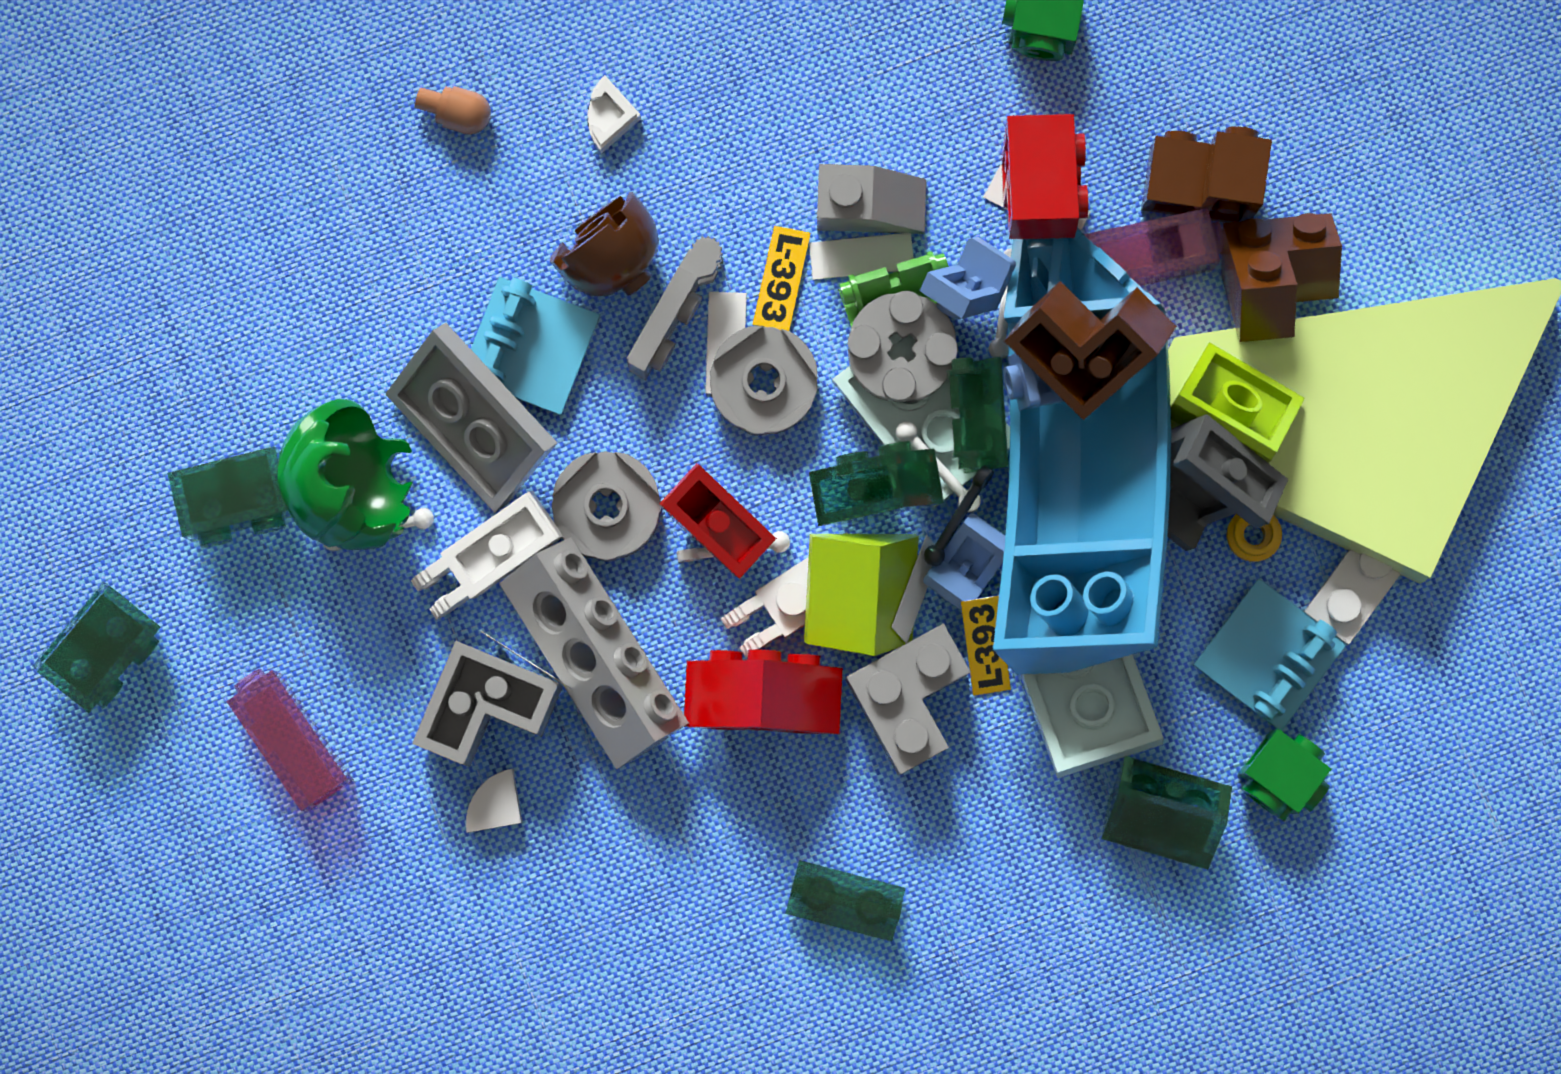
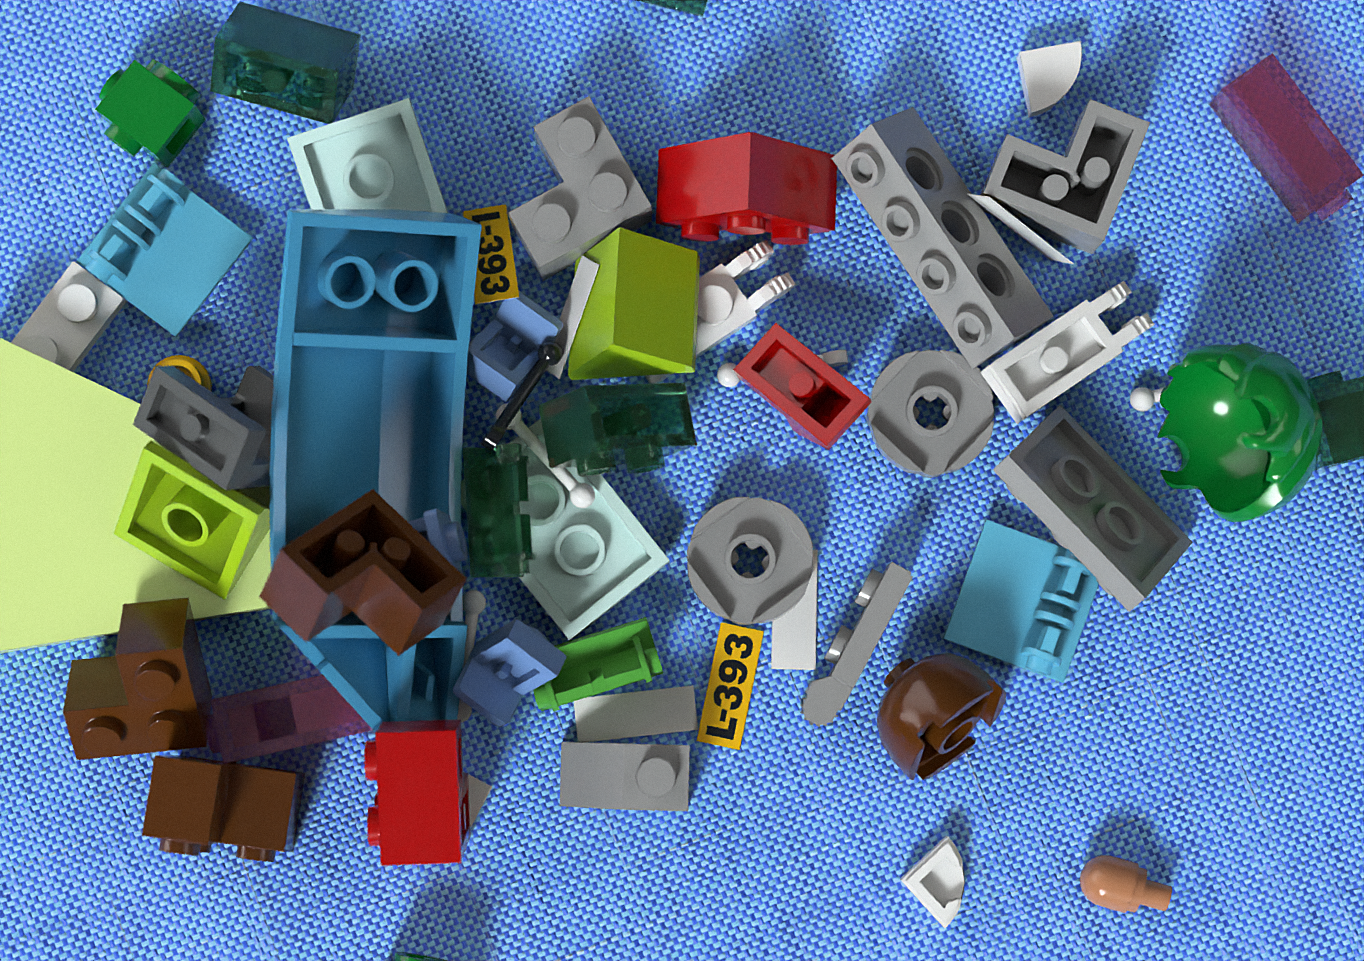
camera: 175 degrees right, 0 degrees up
(870, 343) = (588, 555): light grey plate -> none

